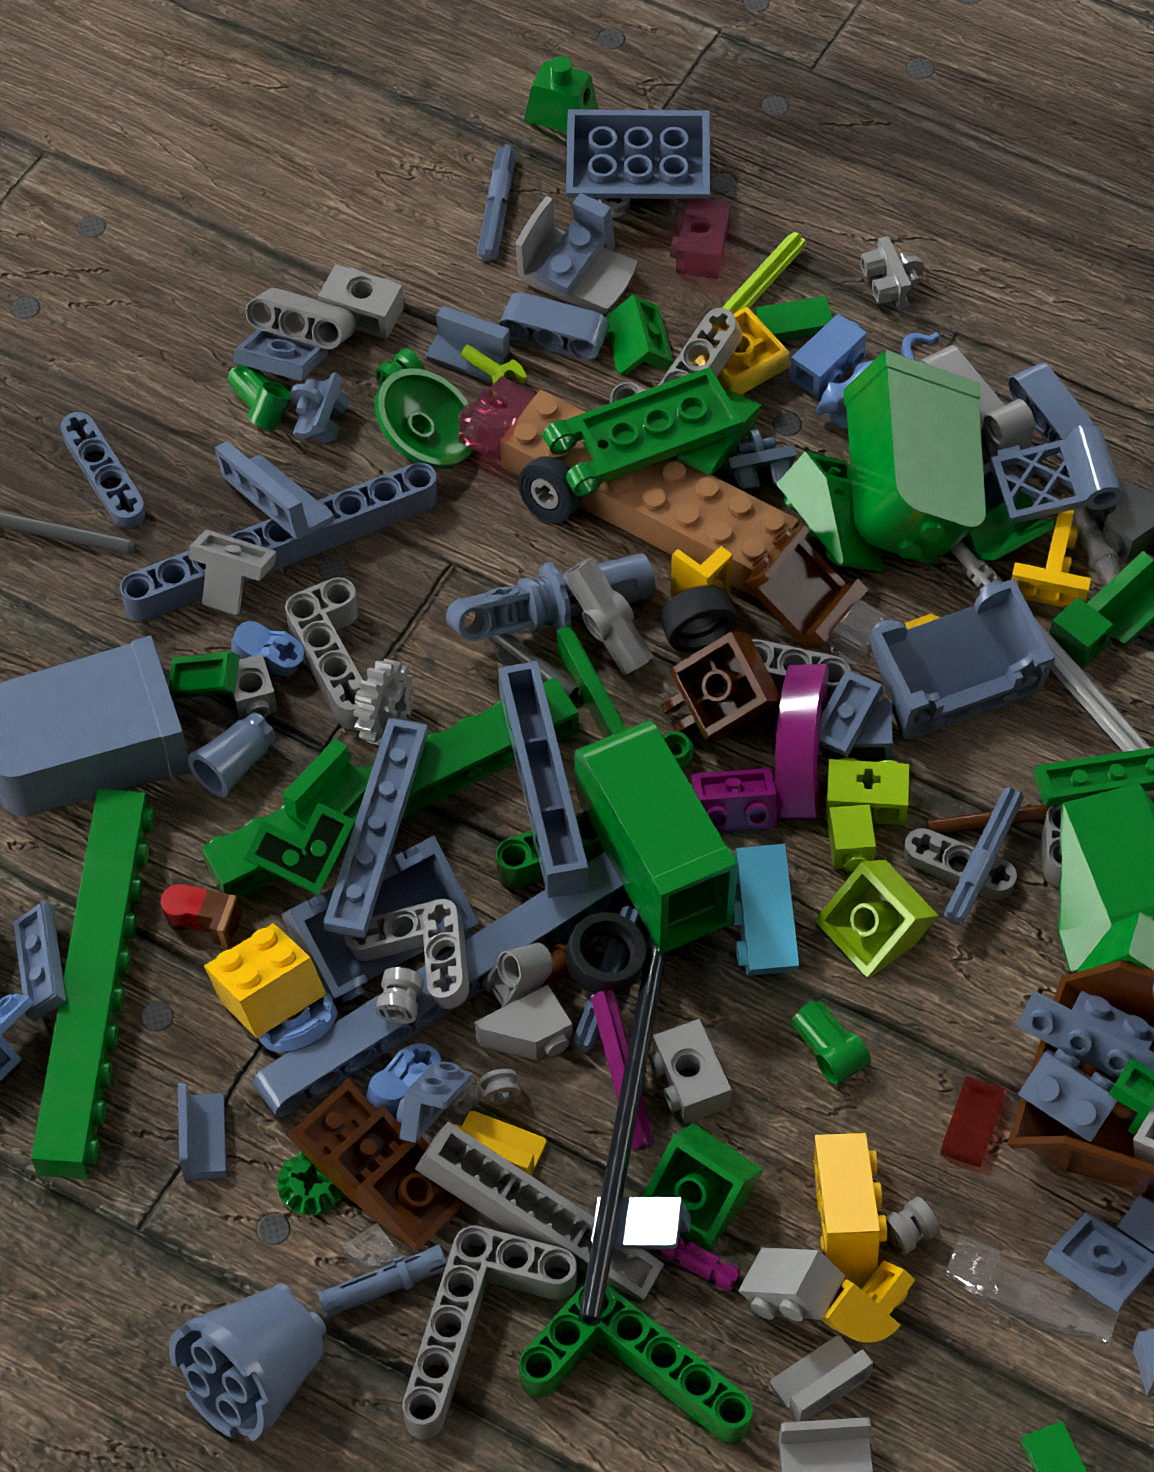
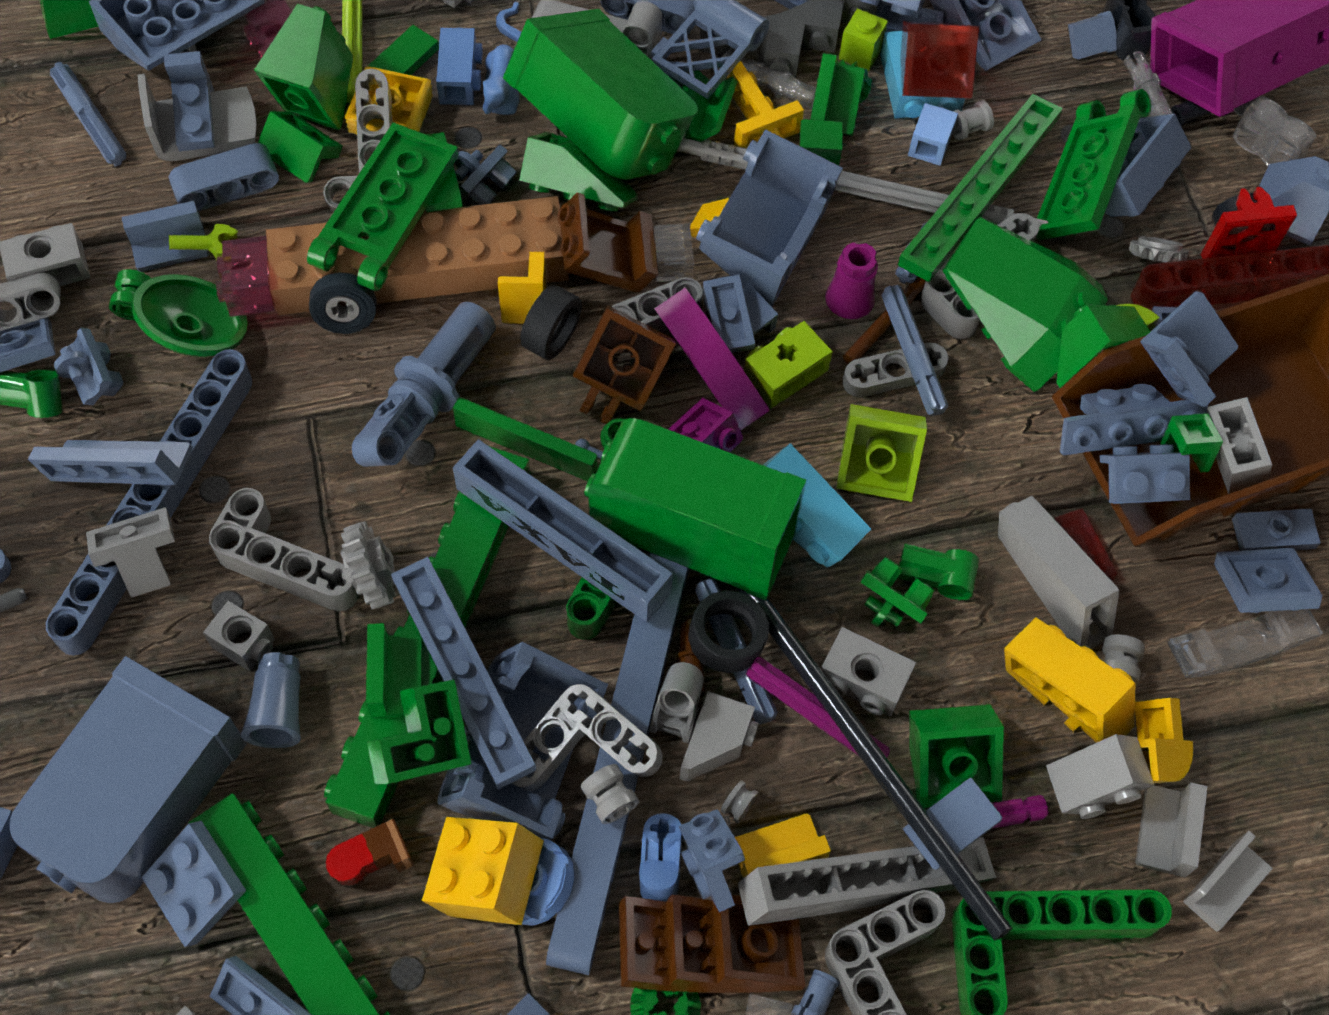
camera: 45 degrees left, 5 degrees up
(66, 834) = (193, 883): none -> sand blue plate
(203, 675) = (192, 653): green tile -> none
(280, 650) = (207, 595): medium blue piece -> none
(526, 655) = (445, 447): dark grey bar -> none
(607, 616) = (483, 367): light grey piece -> none
(696, 275) = (308, 67): none -> green slope
(764, 1033) = (881, 582): none -> green hips
(851, 836) = (808, 406): lime brick -> none
(924, 1118) = (1060, 572): none -> light grey slope
(987, 765) = (853, 283): none -> magenta plant

